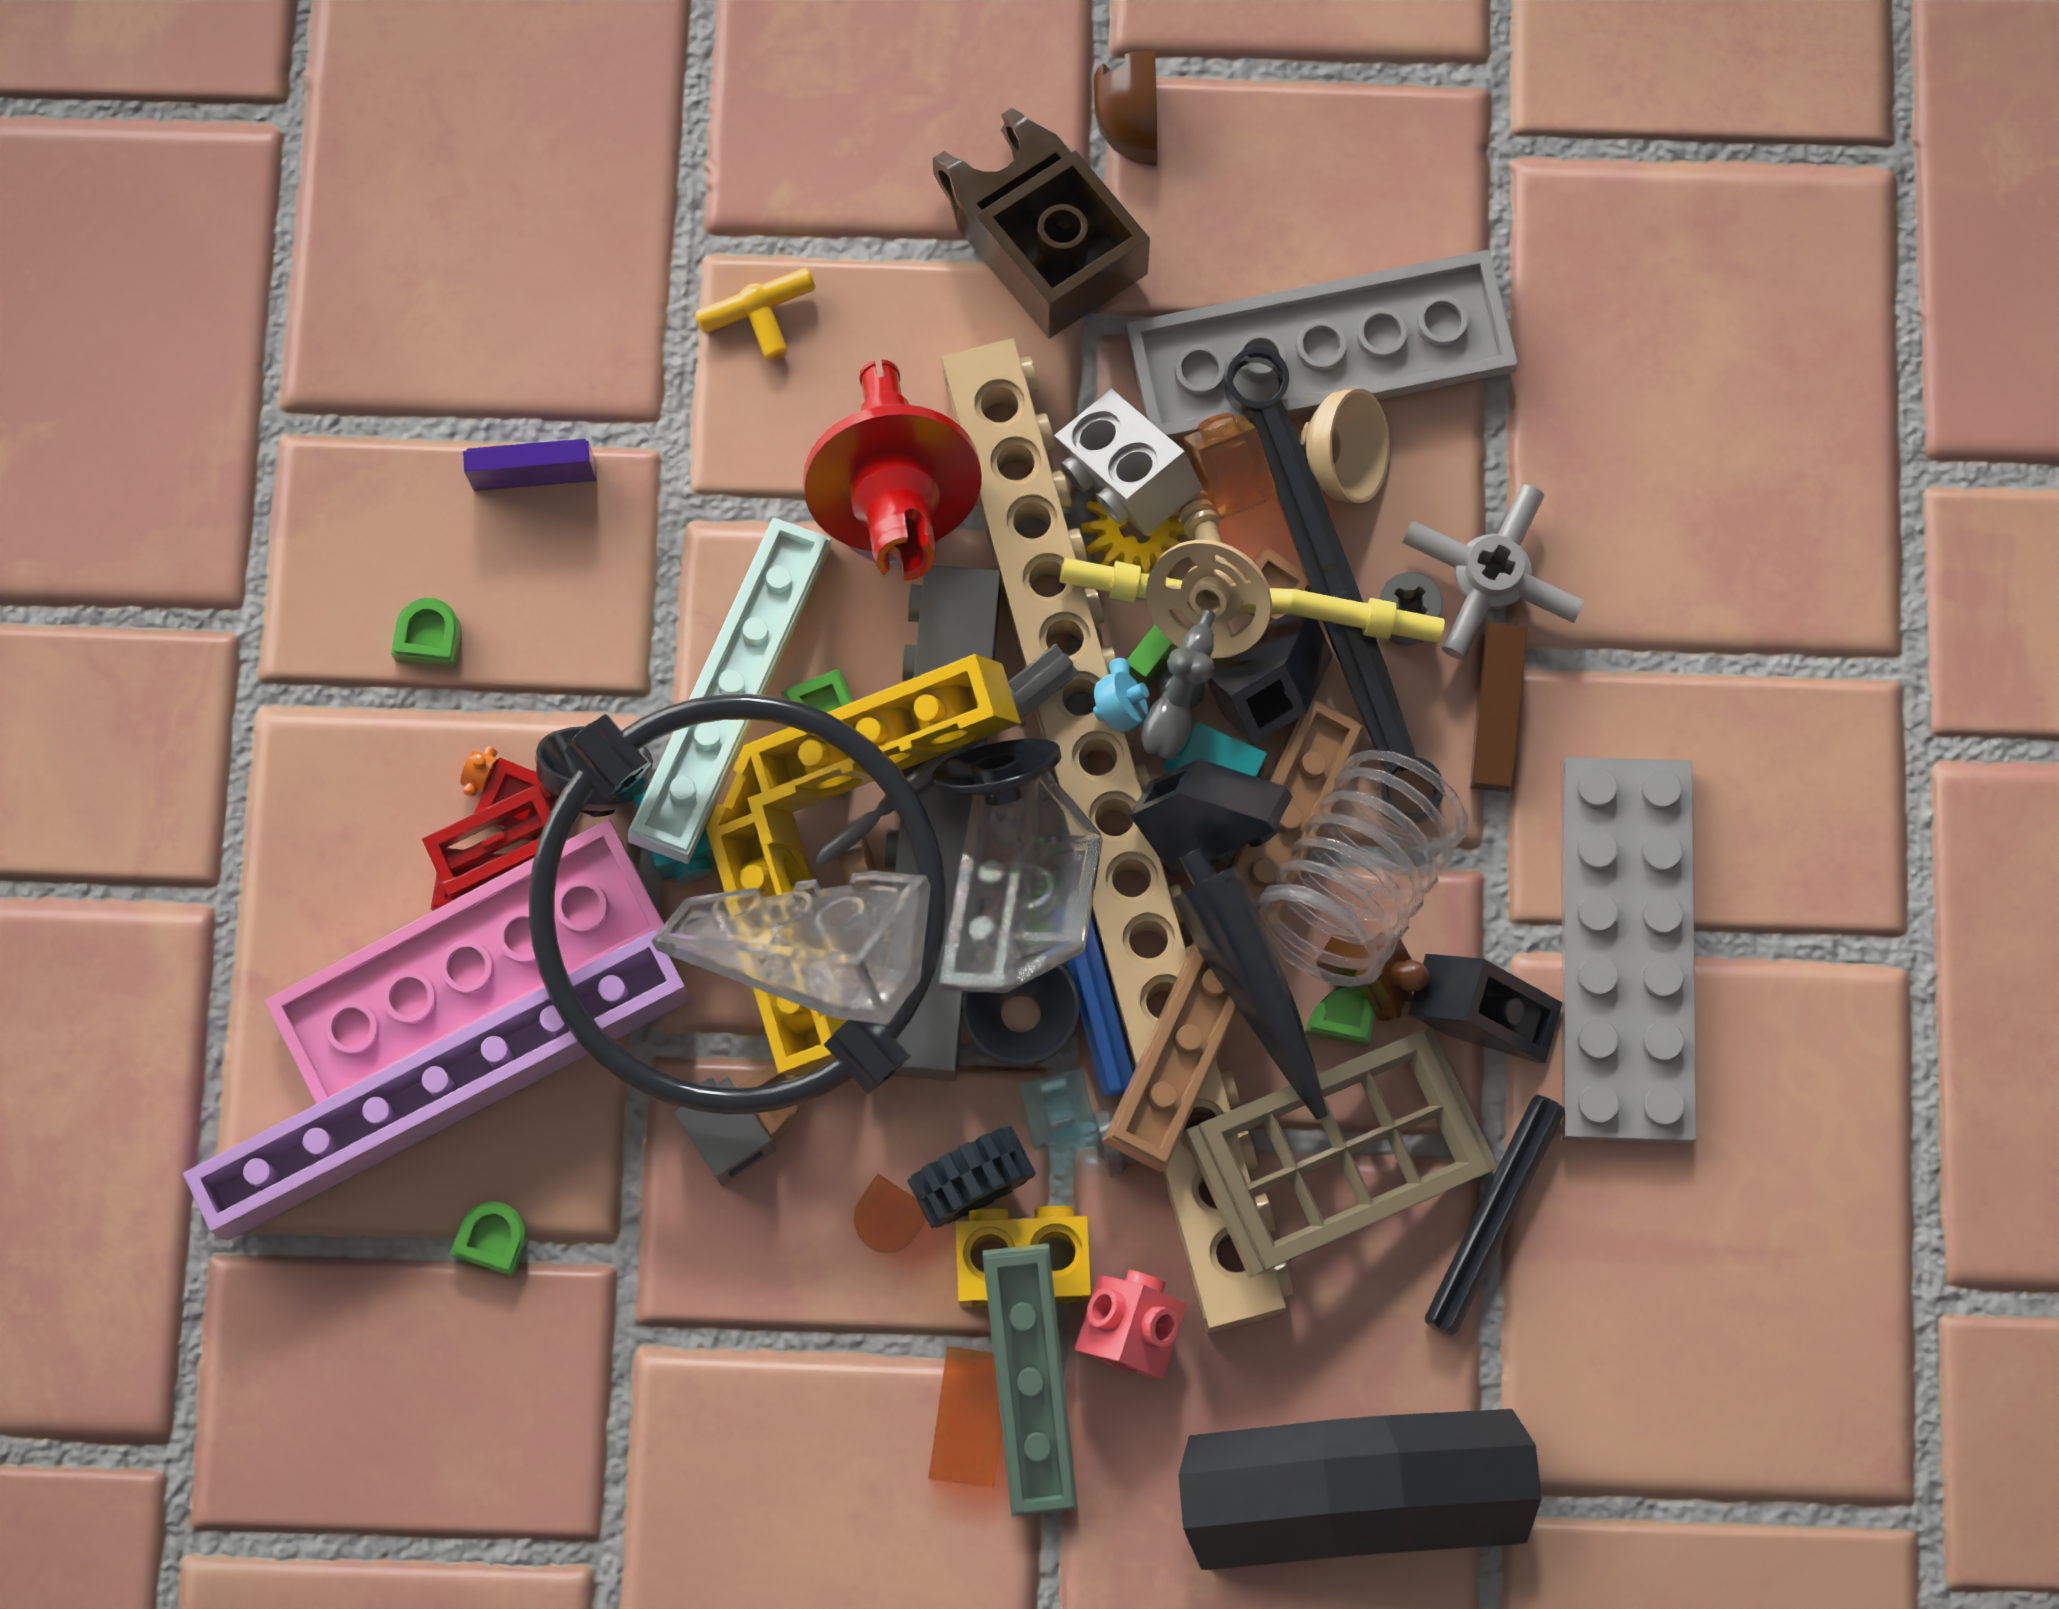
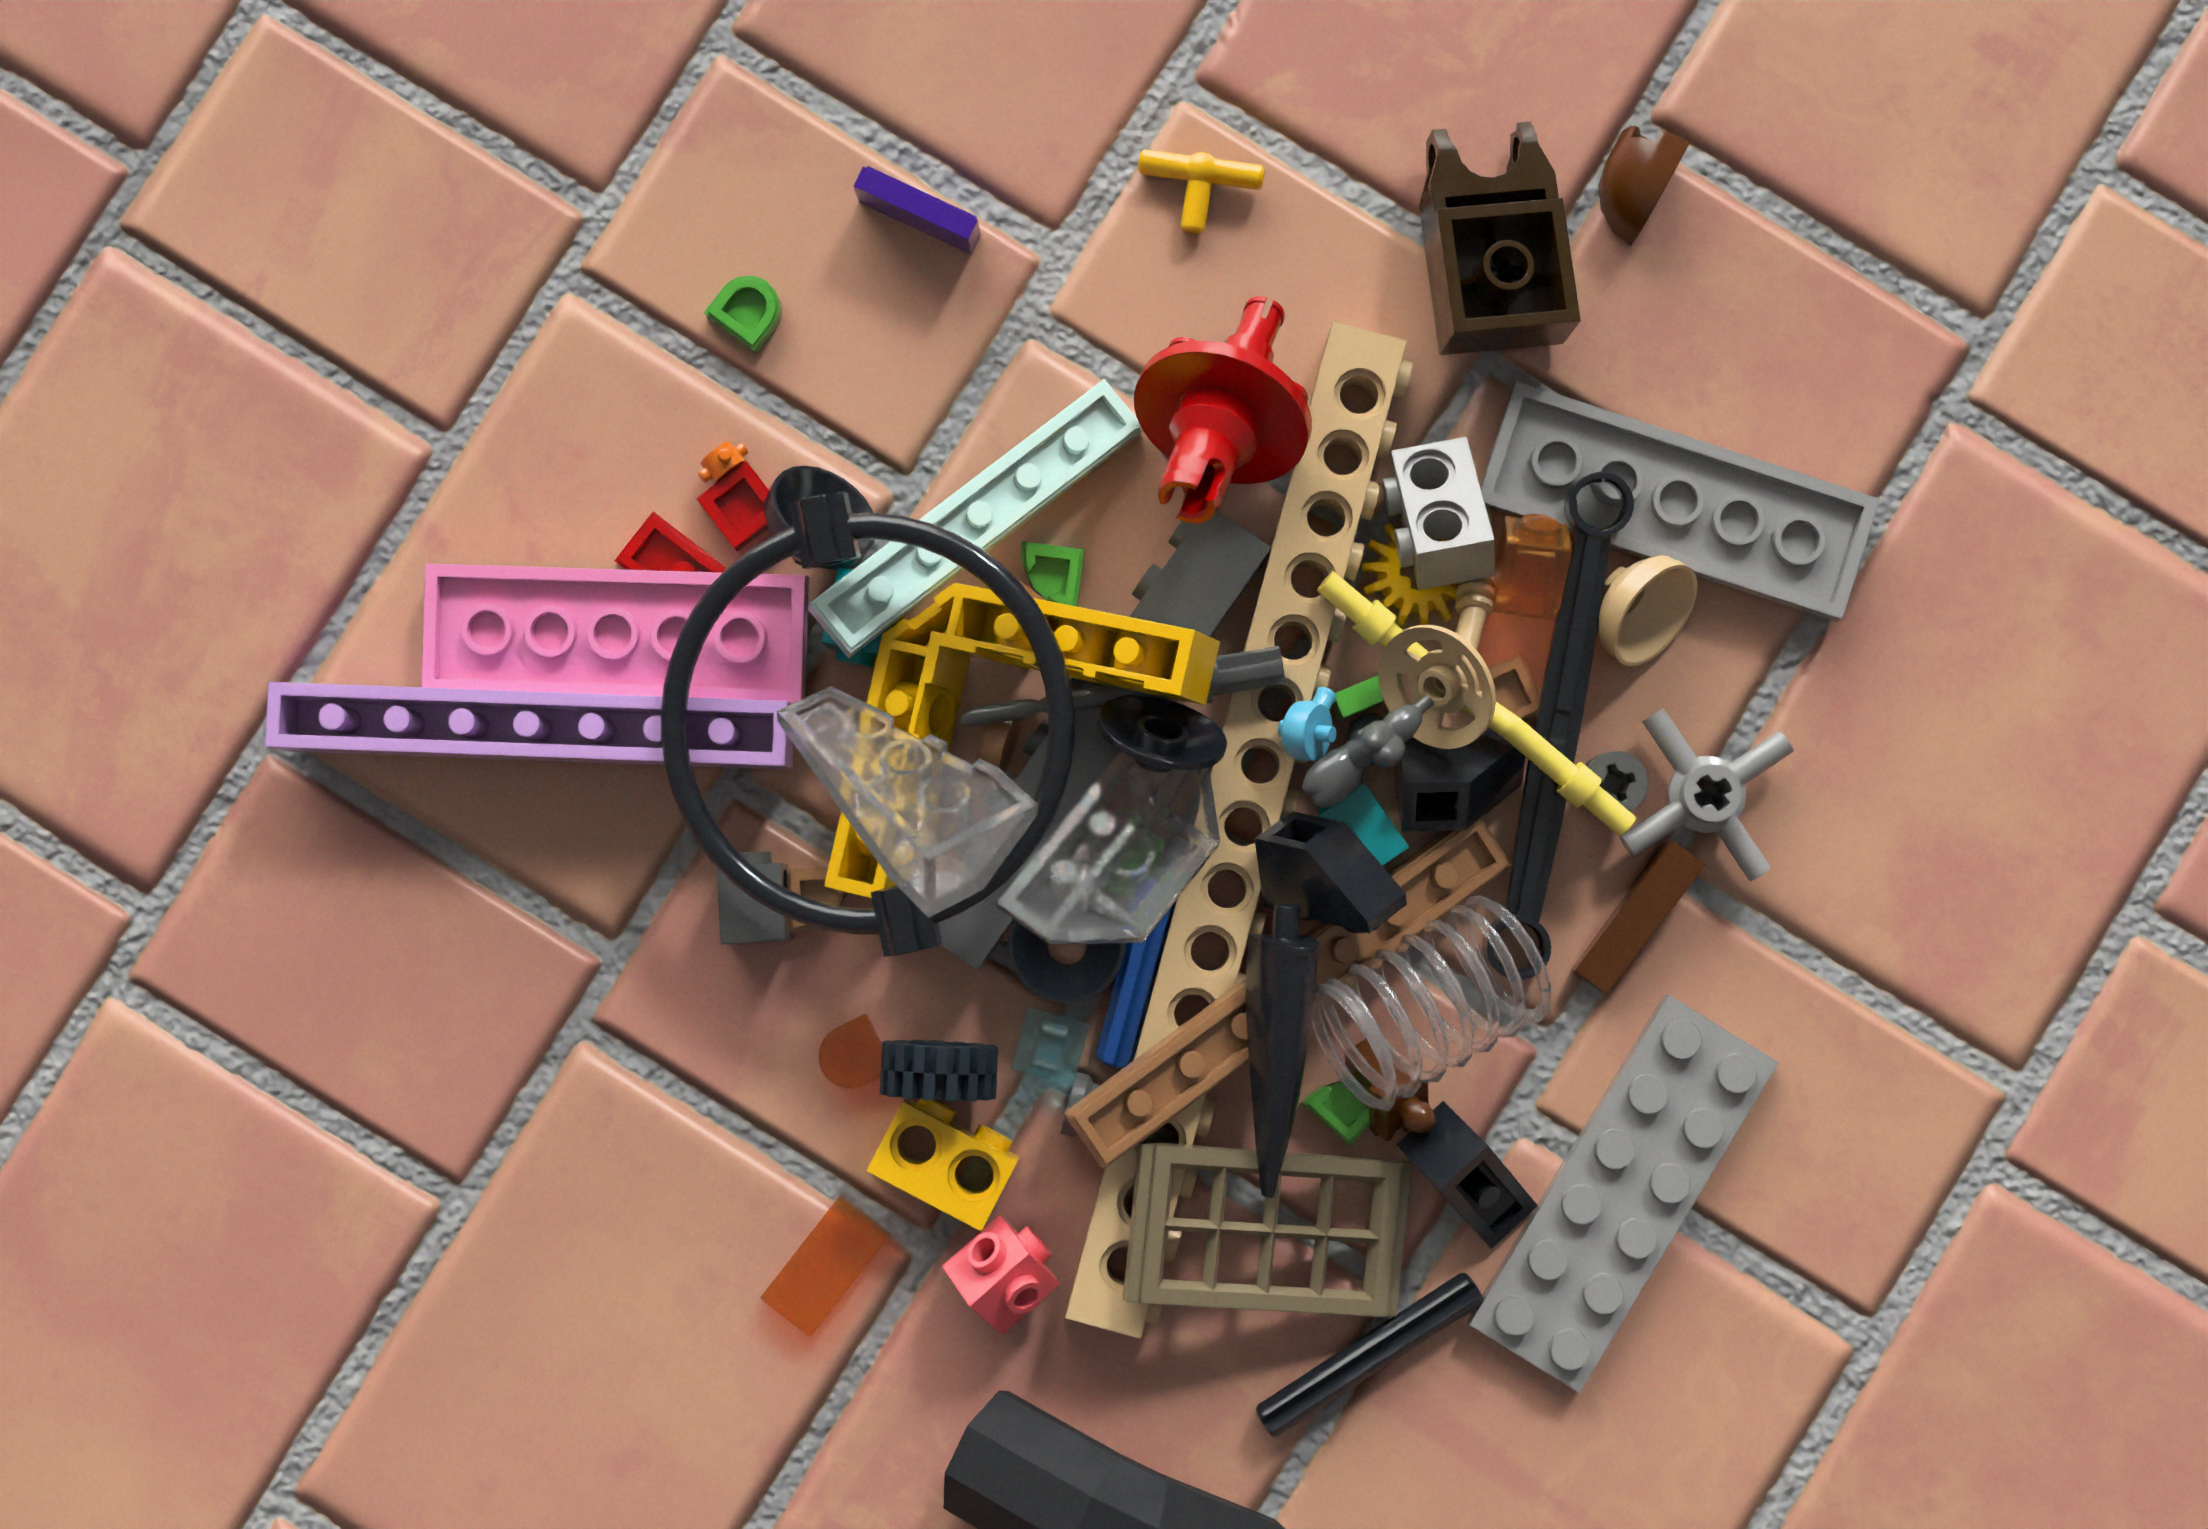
camera: 30 degrees right, 10 degrees up
(478, 822) = (643, 532): red tile -> none
(492, 1238) = (510, 878): bright green tile -> none
(1030, 1379) = (890, 1269): sand green tile -> none

